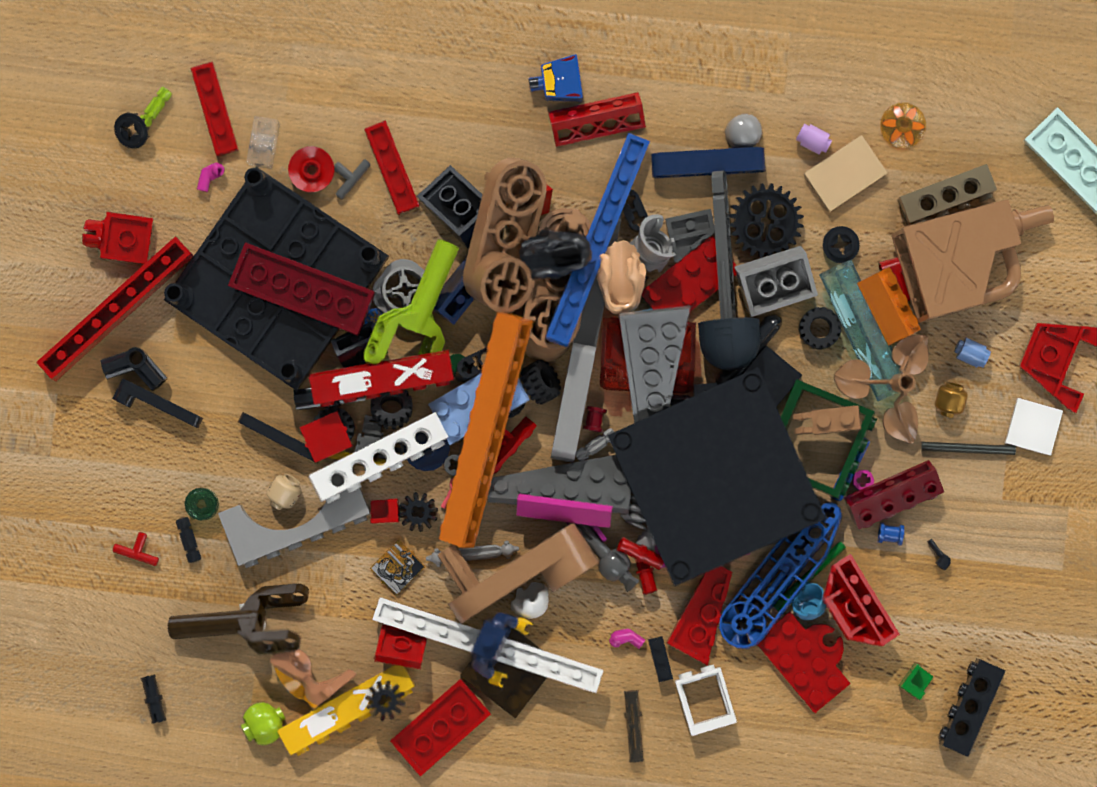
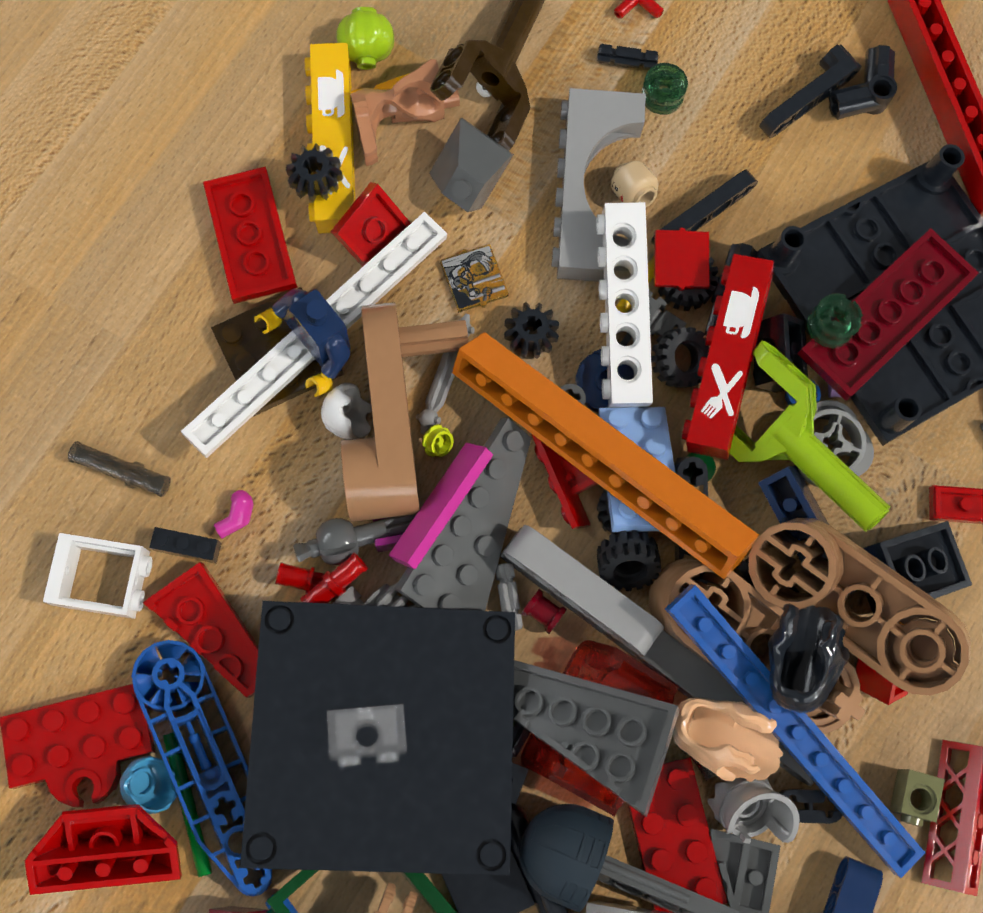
camera: 110 degrees right, 10 degrees down
(327, 606) = (469, 166): none -> dark grey slope
(329, 331) = (834, 333): none -> clear green wheel
(384, 511) = (551, 292): red panel -> none
(520, 536) = (437, 441): none -> neon yellow plate
(590, 157) = (931, 793): none -> olive brick
(723, 499) = (385, 720): none -> clear brick

